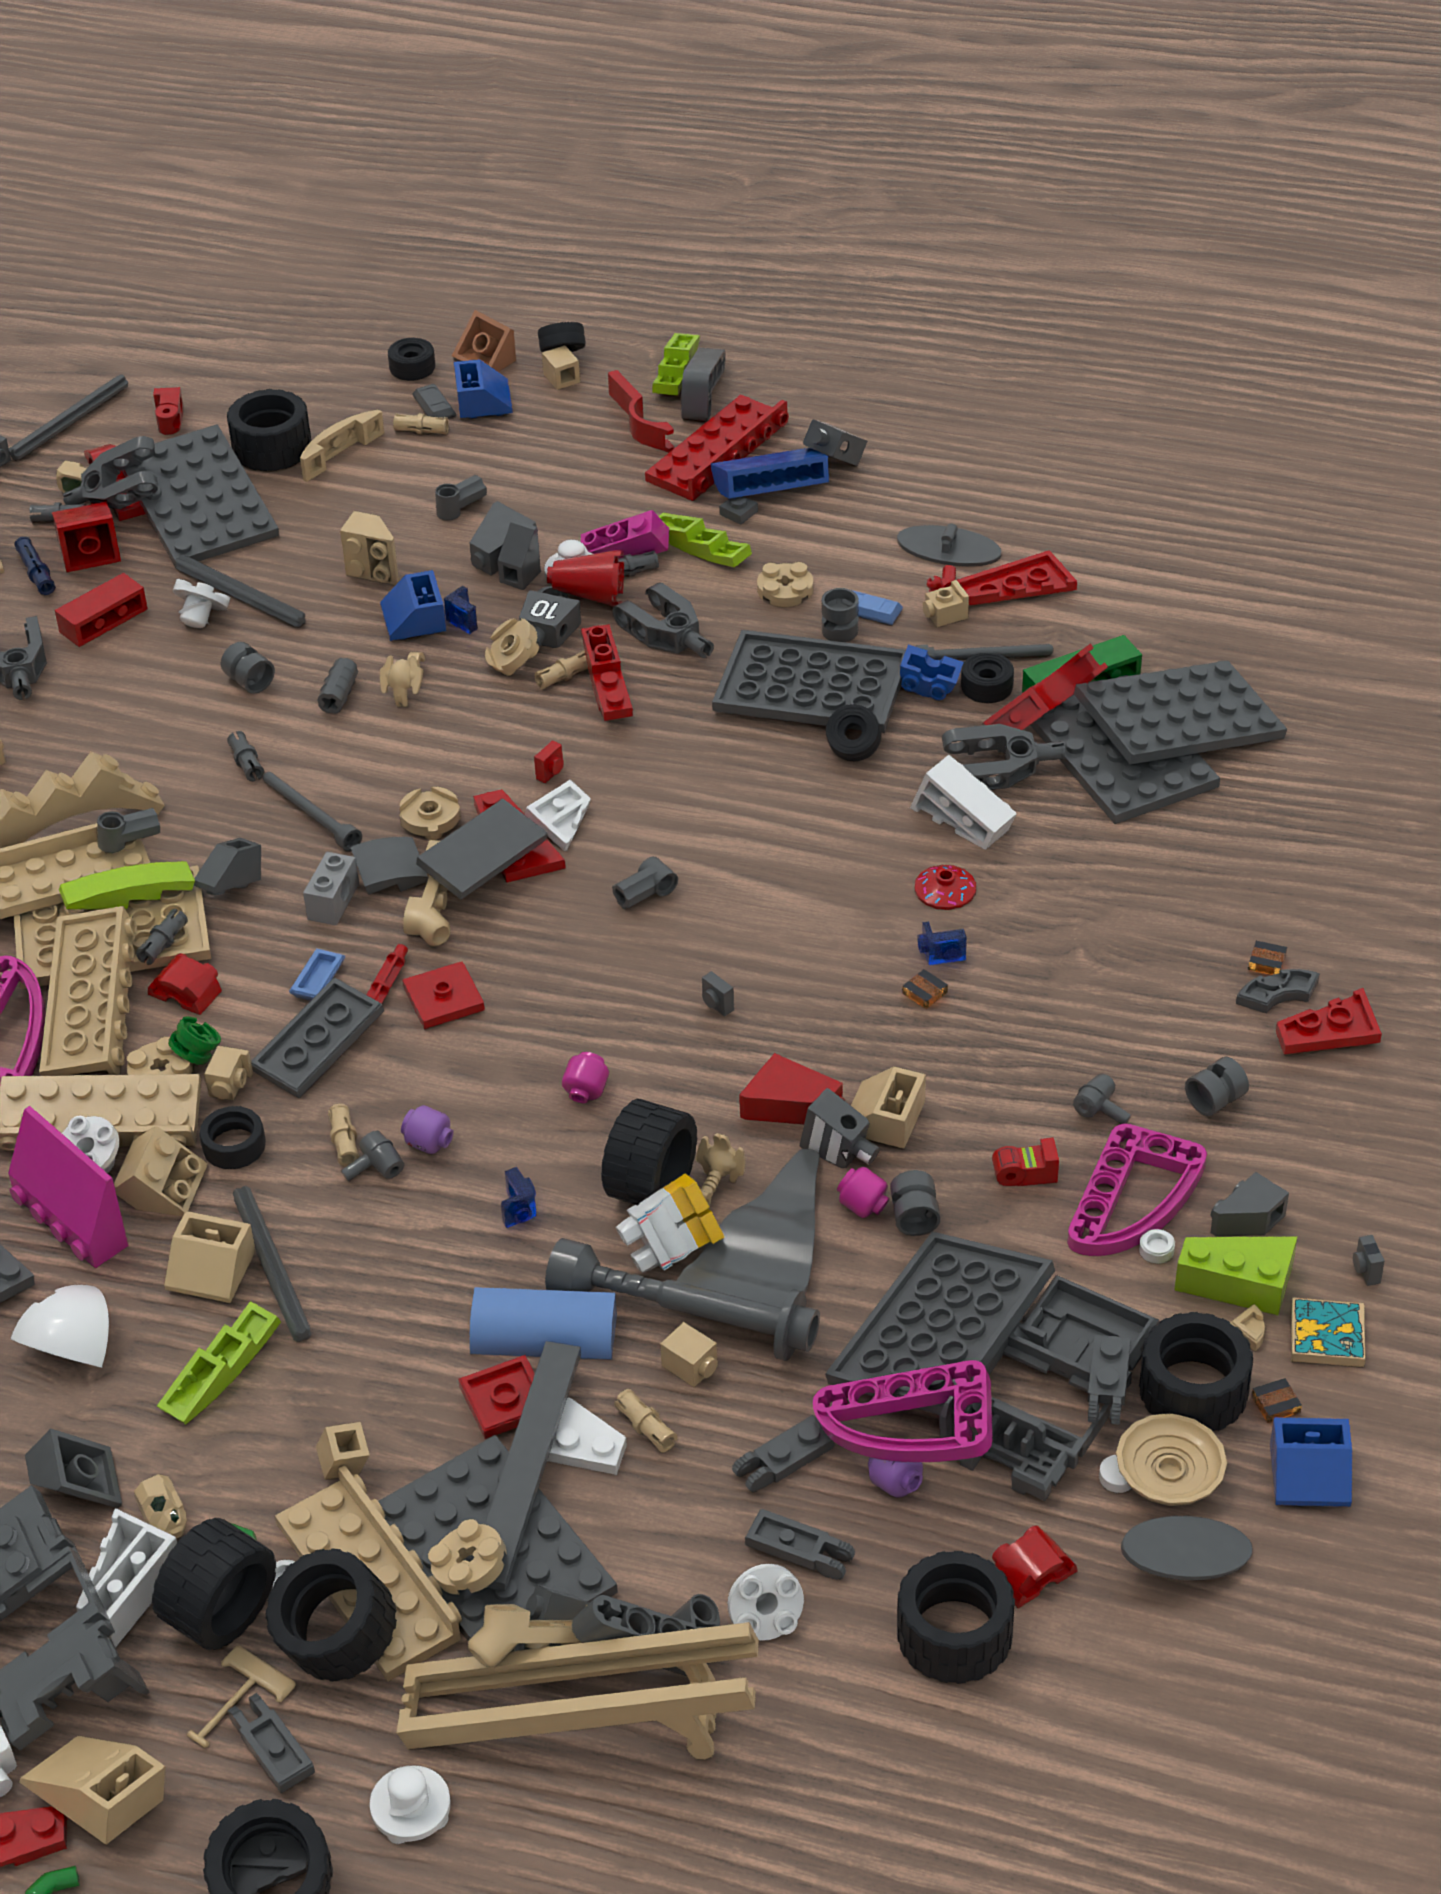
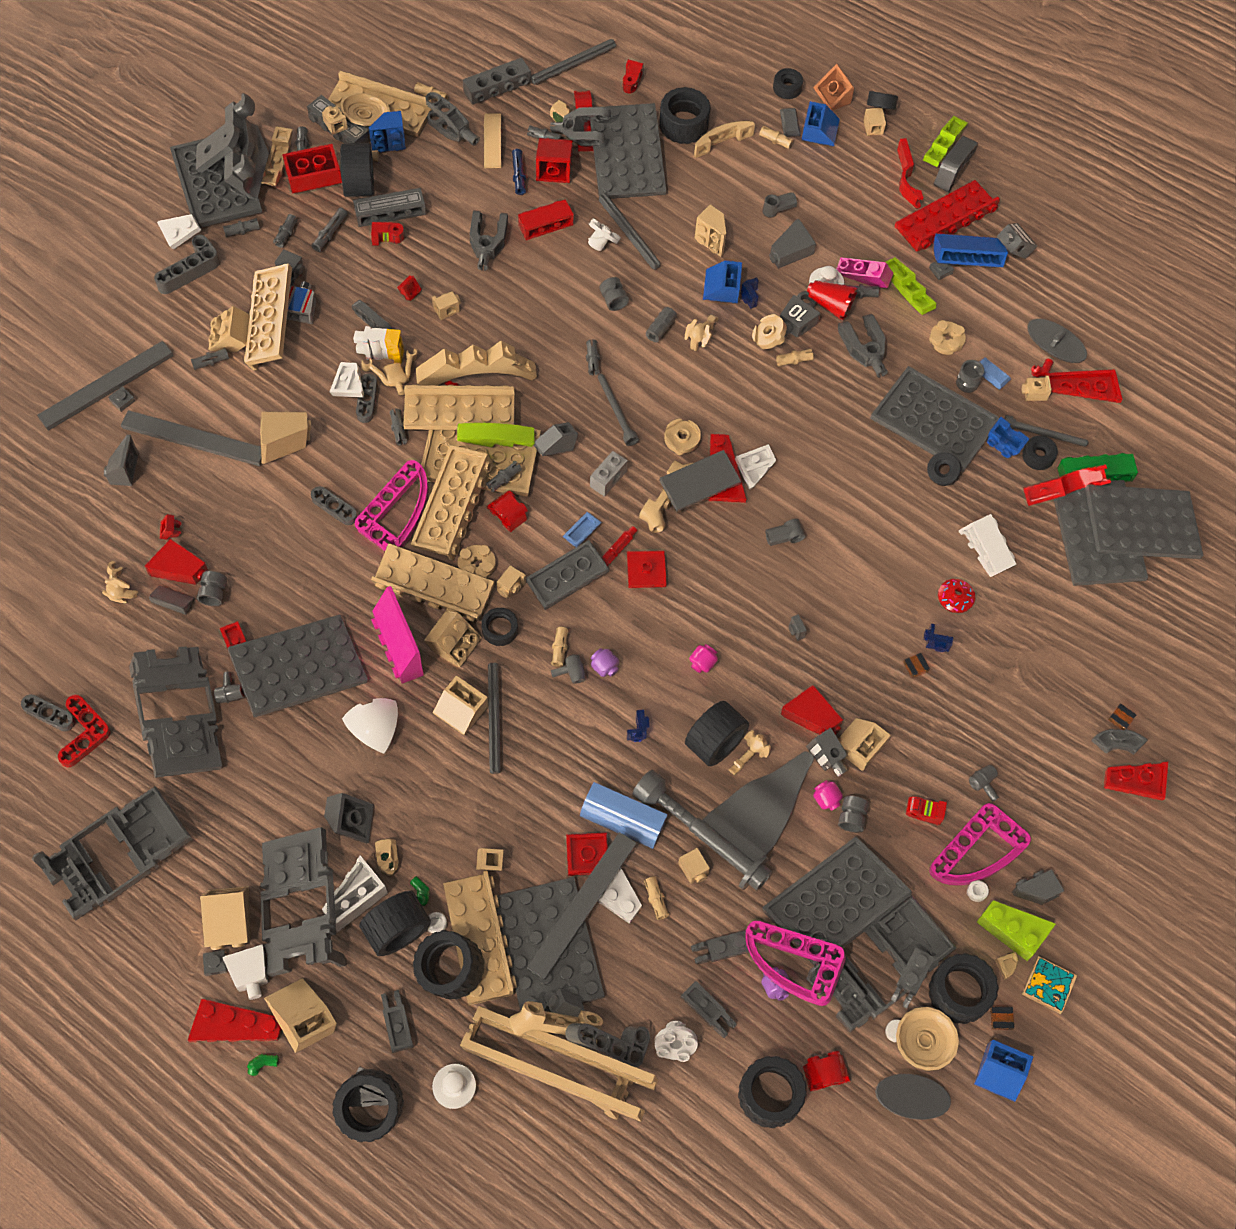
camera: 15 degrees right, 20 degrees up
(95, 1138) = (419, 609): white plate -> none
(117, 829) = (506, 397): dark grey piece -> none
(194, 1040) = (499, 555): green wheel -> none
(216, 1368) = (445, 775): lime slope -> none
(257, 1672) = (404, 974): tan piece -> none
(389, 863) = (646, 465): dark grey slope -> none
(467, 1540) = (522, 949): tan plate -> none
(519, 555) = (797, 265): dark grey slope -> none
(548, 762) = (761, 425): red plate -> none
(606, 673) = (817, 372): red slope -> none
(670, 1225) = (712, 782): white hips -> none
(1018, 747) = (1033, 509): dark grey piece -> none
(1217, 1086) = (1054, 799): dark grey wheel -> none
(1368, 1260) = (1091, 949): dark grey plate -> none

